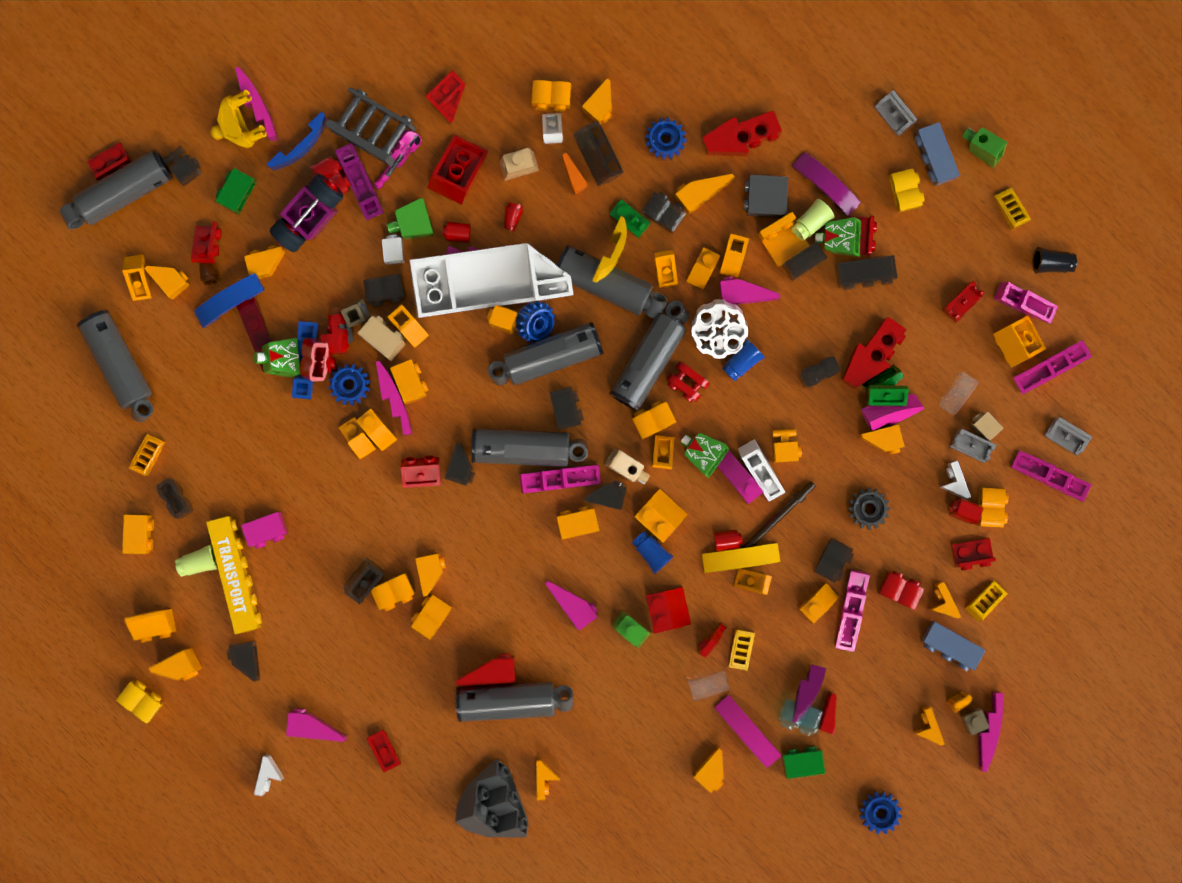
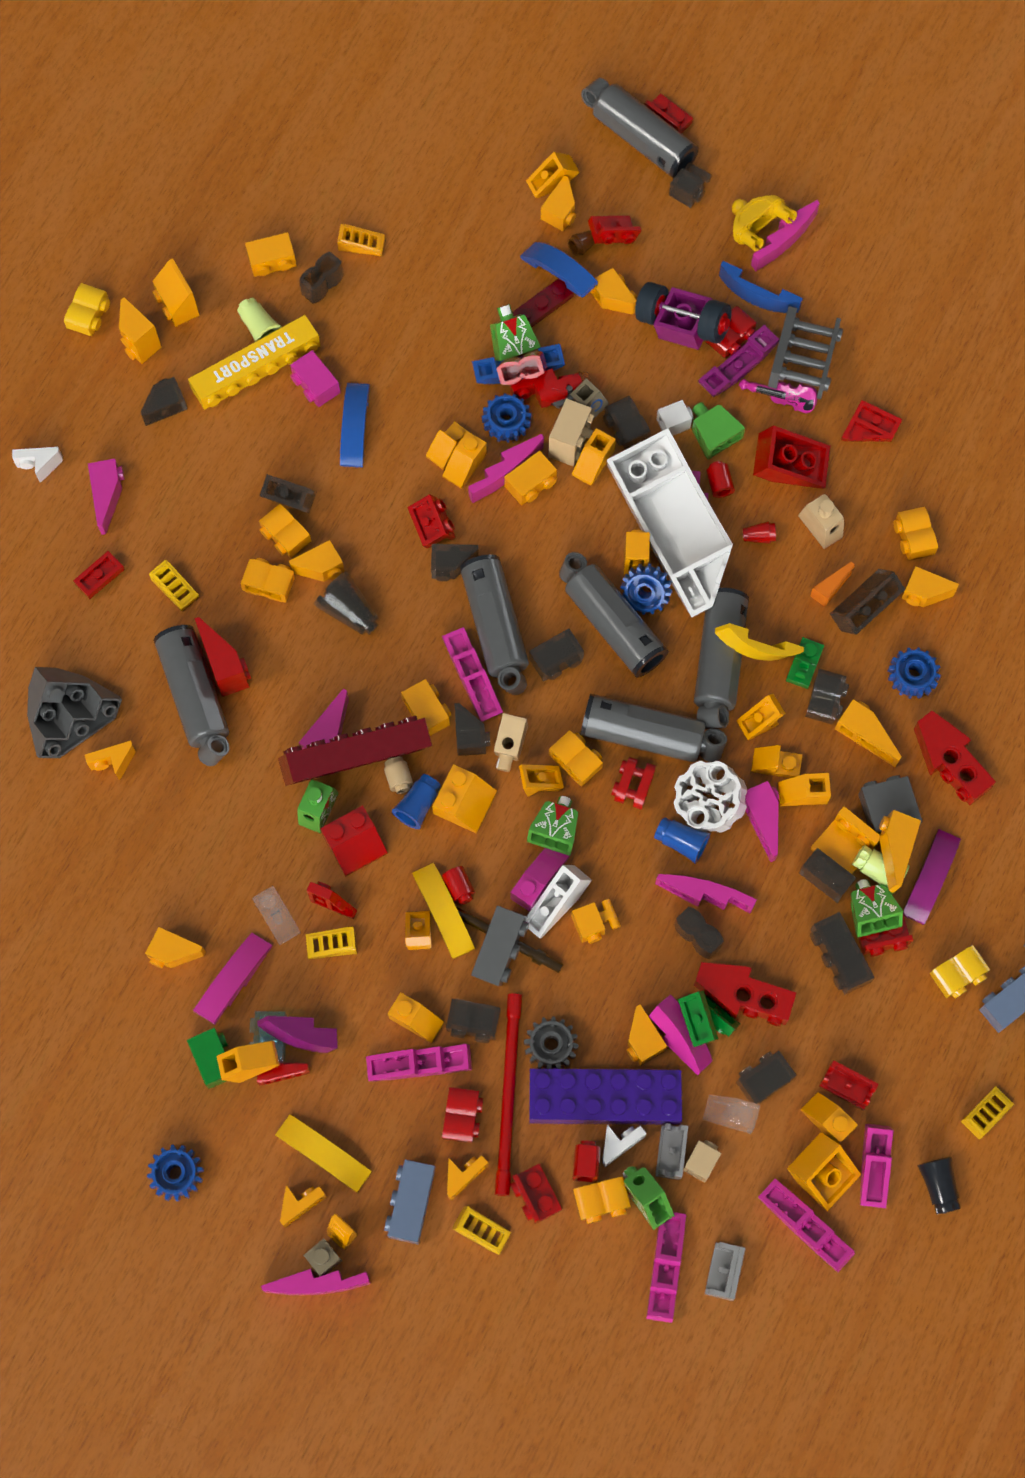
camera: 75 degrees right, 15 degrees down
(116, 363) = (451, 179): dark grey piece -> none
(235, 191) = (681, 242): green brick -> none
(313, 509) = (354, 424): none -> blue slope
(396, 700) = (168, 571): none -> yellow slope
(474, 559) = (348, 605): none -> clear smoke cone
(552, 128) = (877, 545): white slope -> none
(604, 590) = (355, 751): none -> dark red brick
(626, 560) = (398, 775): none -> tan brick
(786, 360) = (696, 889): none -> dark pink slope
(786, 523) = (500, 946): none -> dark grey brick
(805, 203) = (896, 845): none -> light orange slope
(821, 737) = (247, 1061): none -> light orange slope
(896, 700) = (323, 1153): none -> yellow slope
(920, 481) = (605, 1096): none -> dark purple brick
(941, 360) = (765, 1078): none -> clear smoke brick
(950, 572) = (503, 1173): none -> red piece
(983, 324) = (829, 1118): none -> light orange slope
(1005, 474) = (645, 1190): none -> bright green torso

